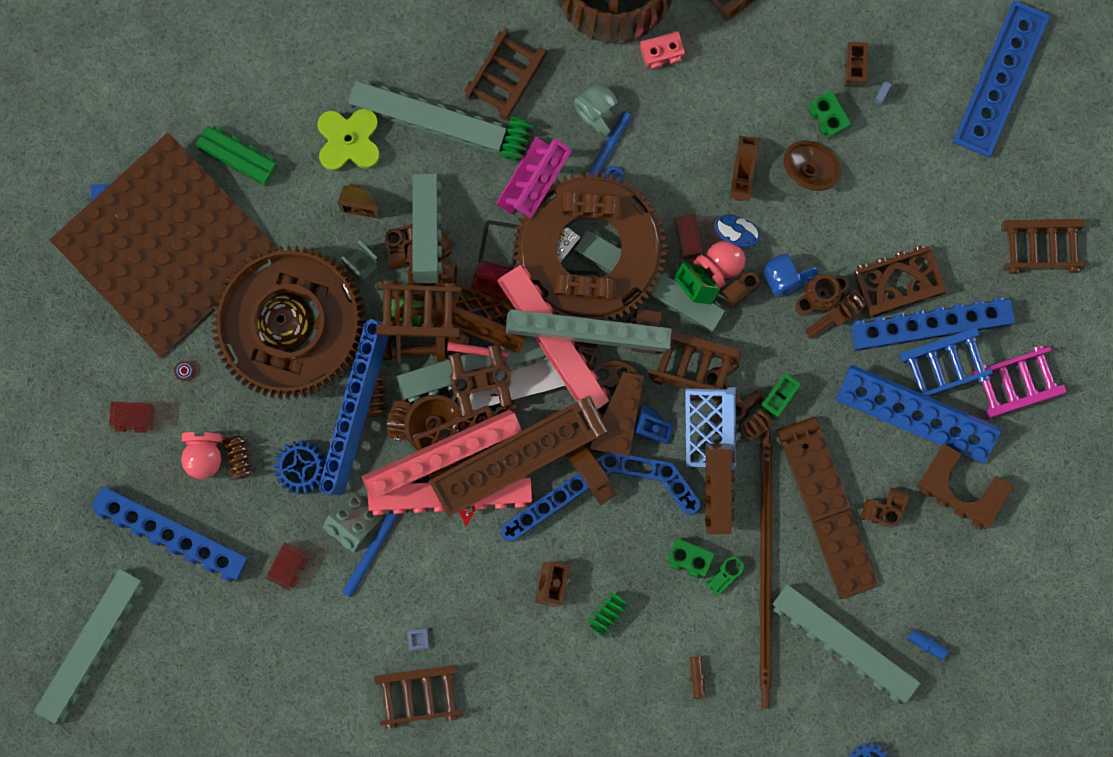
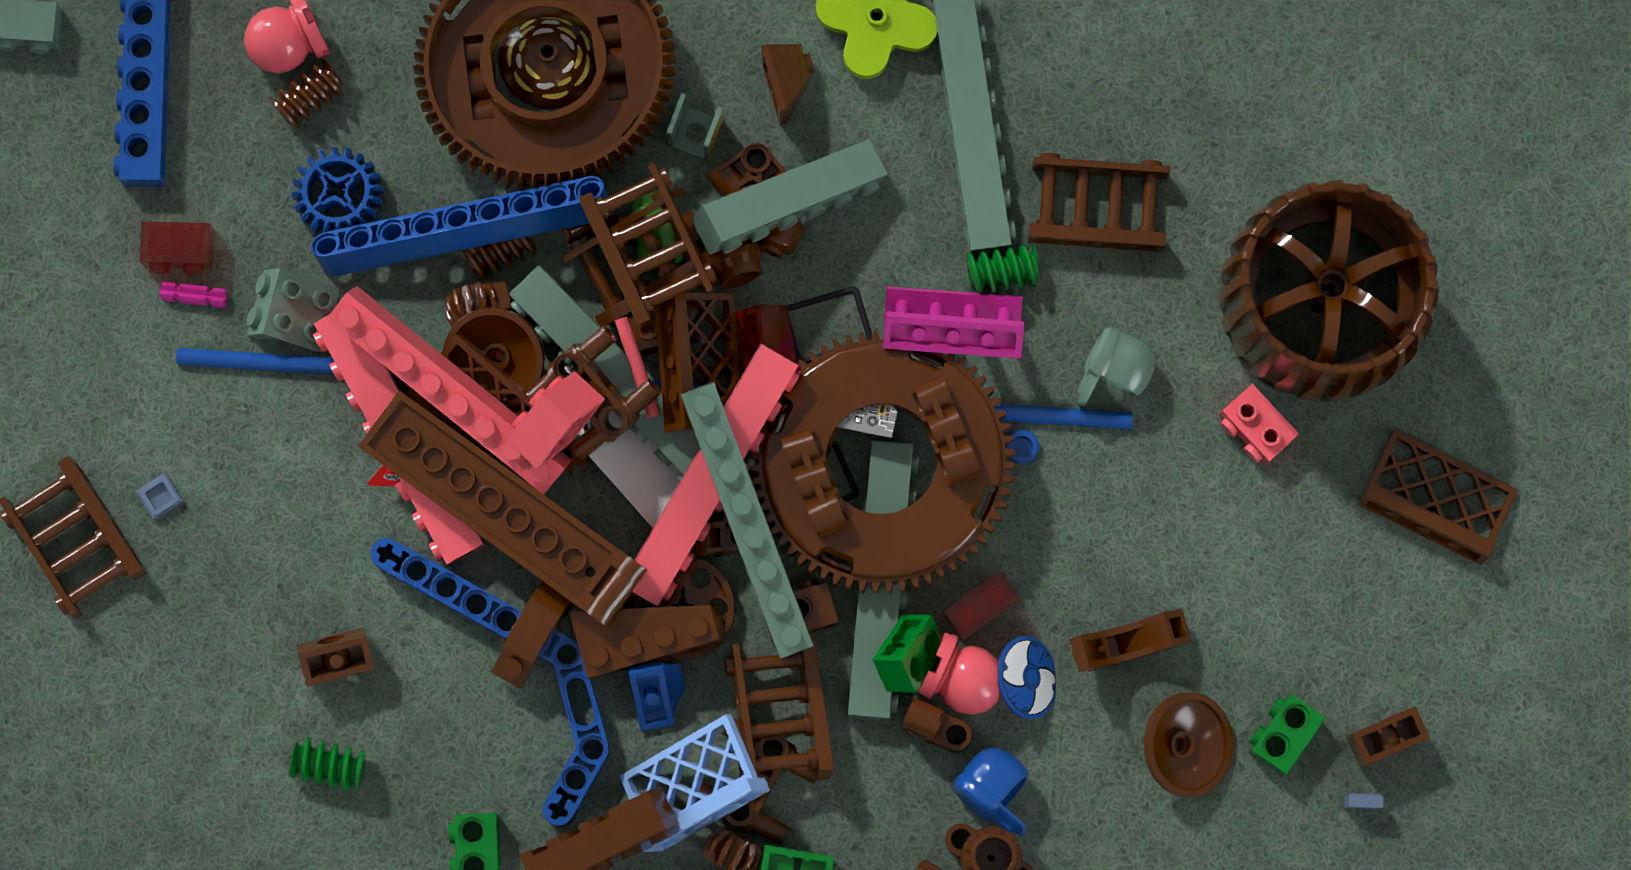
camera: 60 degrees right, 0 degrees up
(317, 570) = (193, 294): none -> dark pink axle
(486, 404) = (554, 418): none -> coral brick

